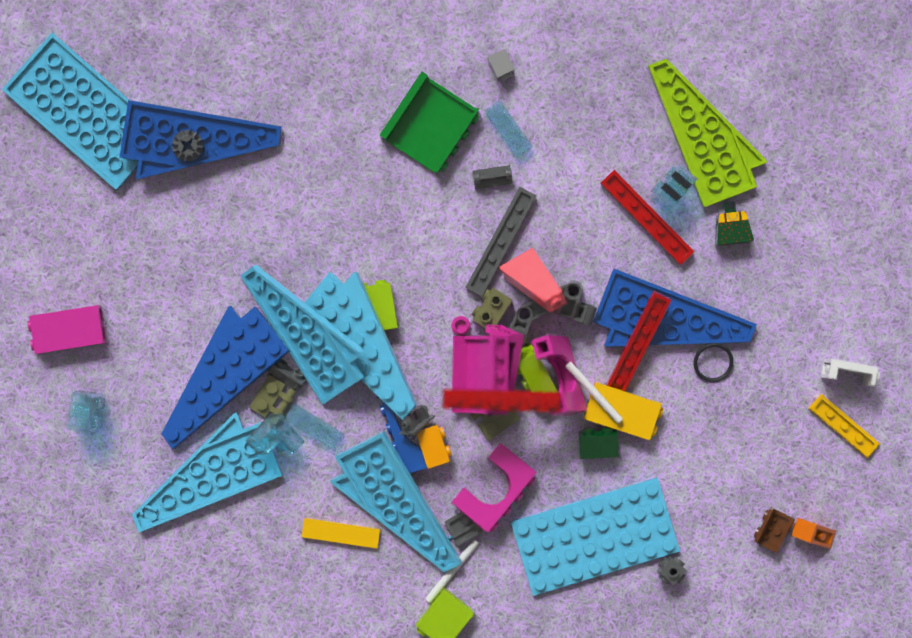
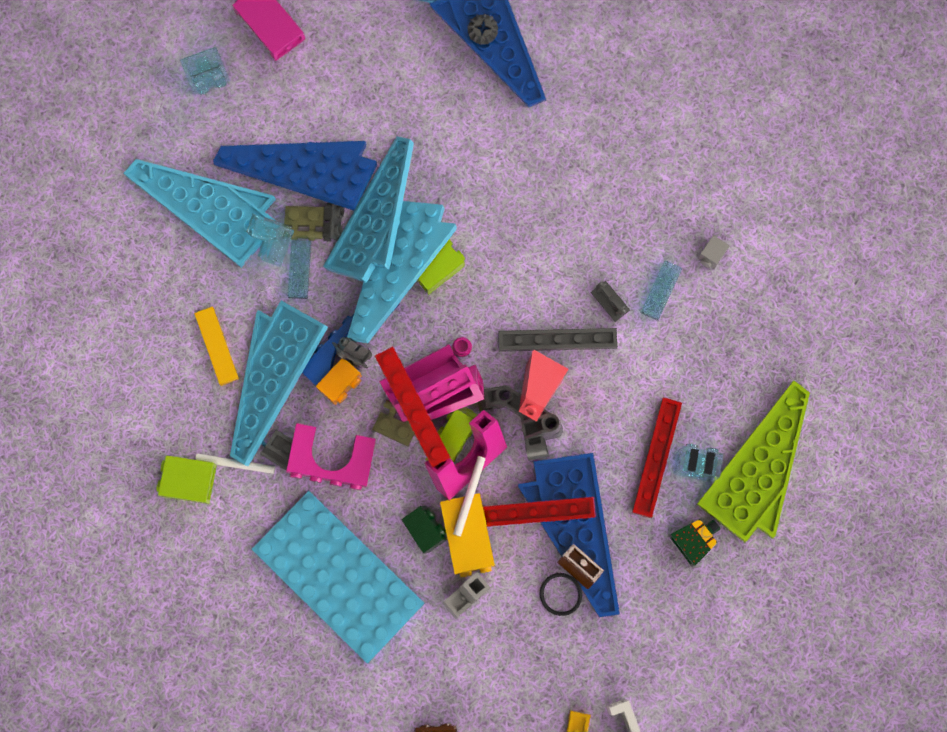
camera: 60 degrees right, 10 degrees down
(430, 124) = (624, 220): green panel -> none
(492, 309) = (493, 364): olive brick -> none
(669, 563) = (352, 668): dark grey brick -> none
(671, 440) = (466, 595): none -> light grey brick
(701, 333) = (580, 566): none -> reddish brown slope

